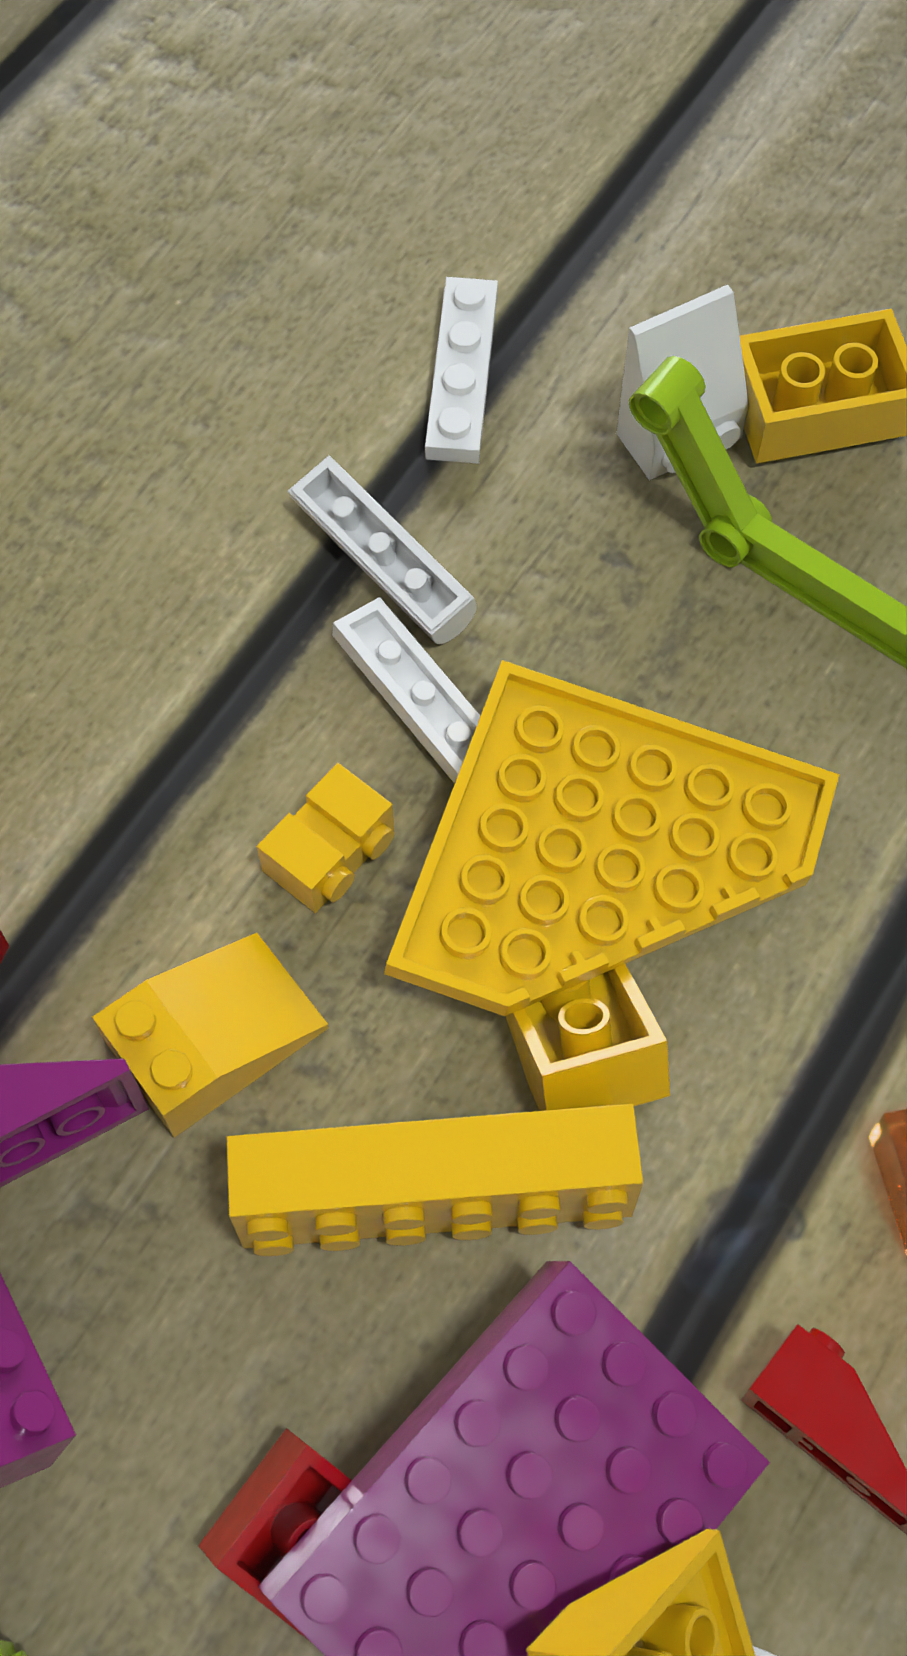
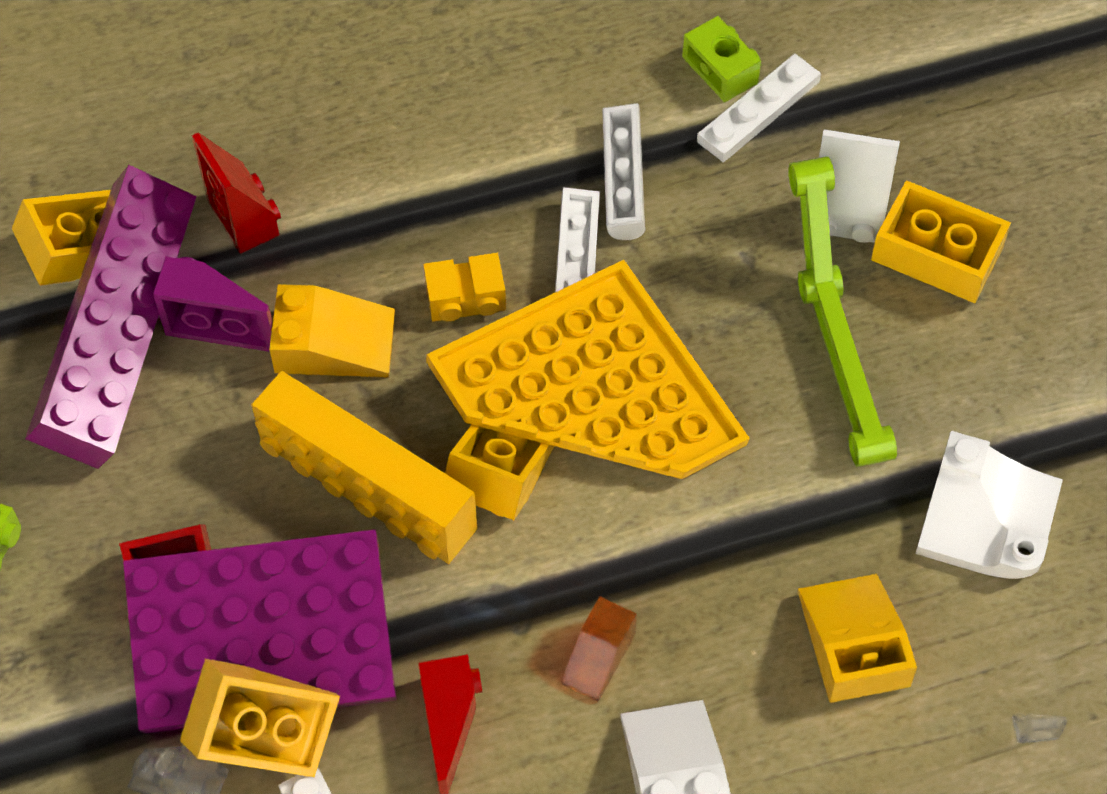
camera: 40 degrees right, 5 degrees down
(370, 337) = (721, 58): none -> lime brick

